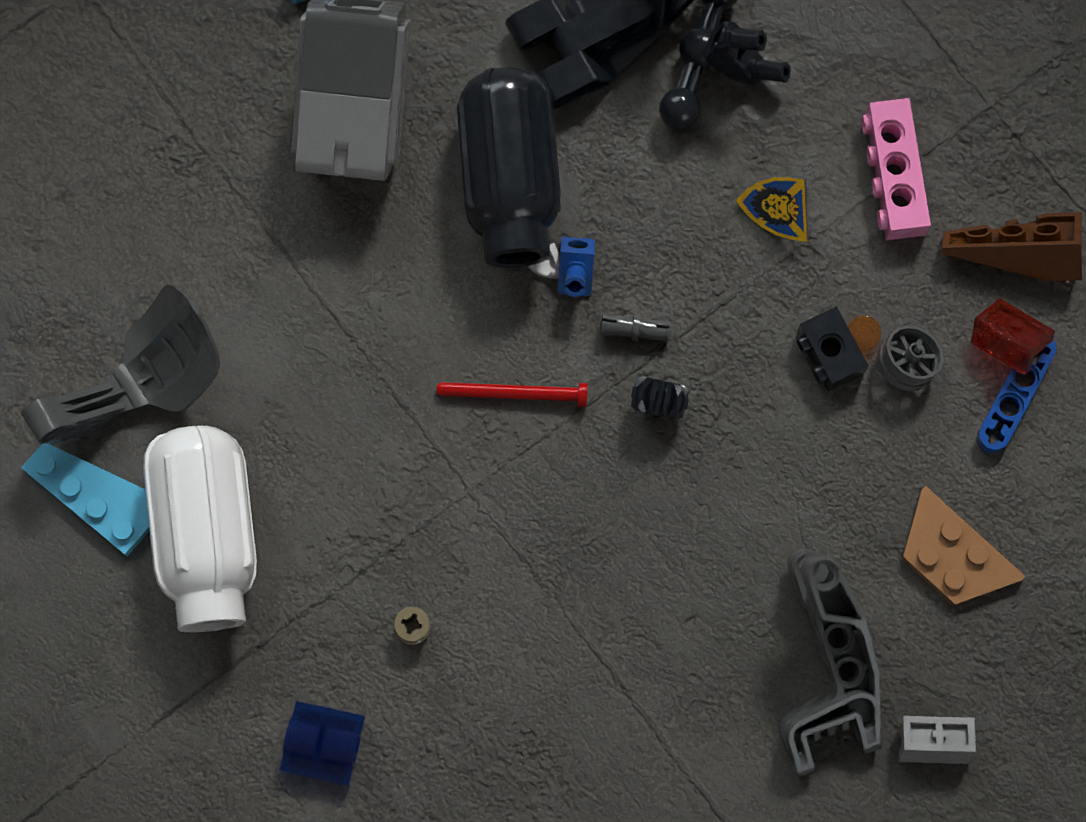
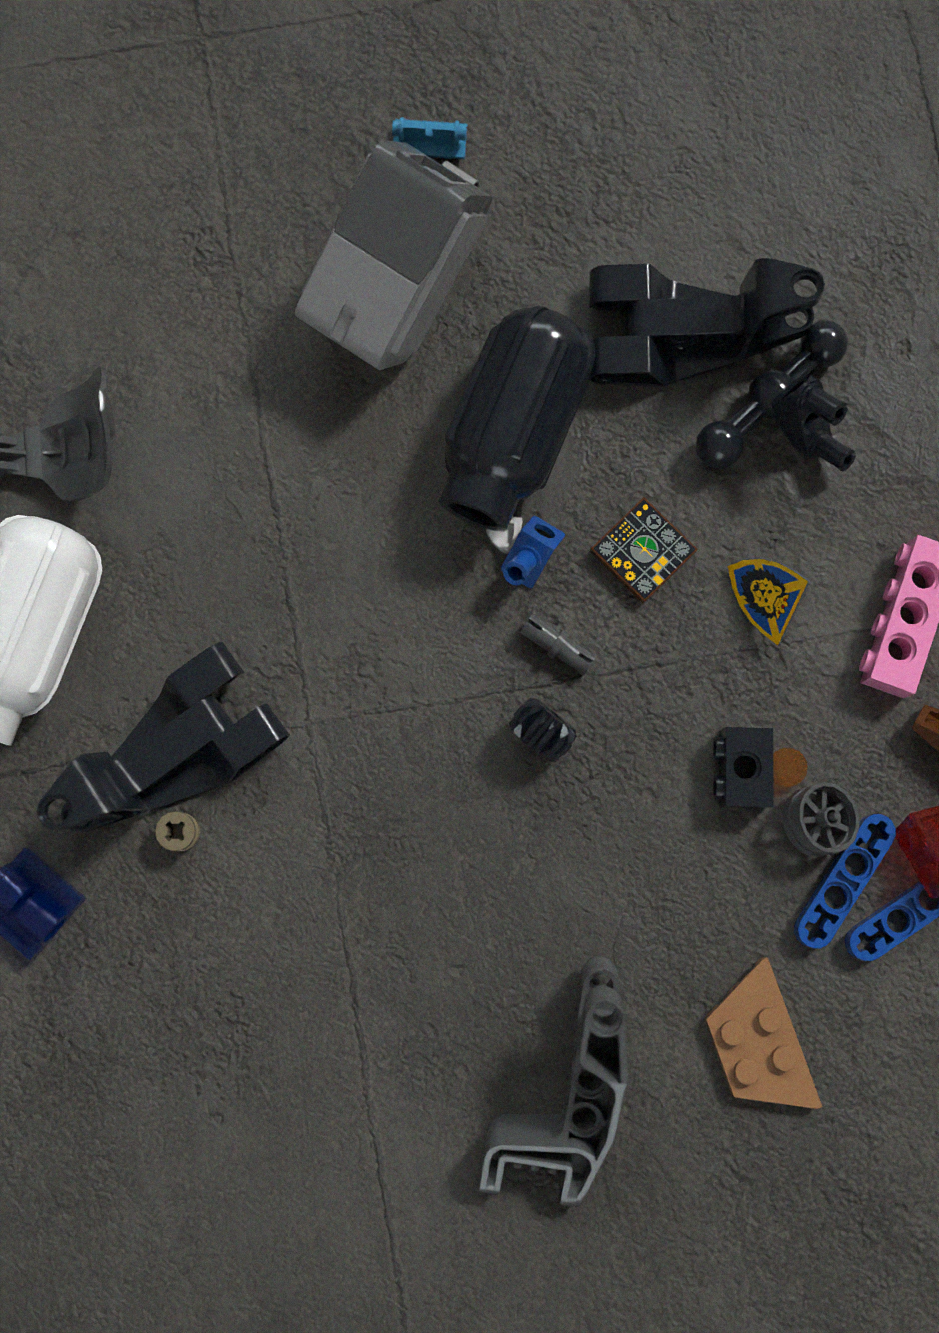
camera: 30 degrees right, 5 degrees up
(375, 560) = (172, 753): none -> black piece
(515, 392) = (405, 648): red bar -> none
(663, 221) = (643, 550): none -> tile
(937, 739) = (641, 1230): light grey hinge -> none
(958, 398) = (849, 884): none -> blue beam

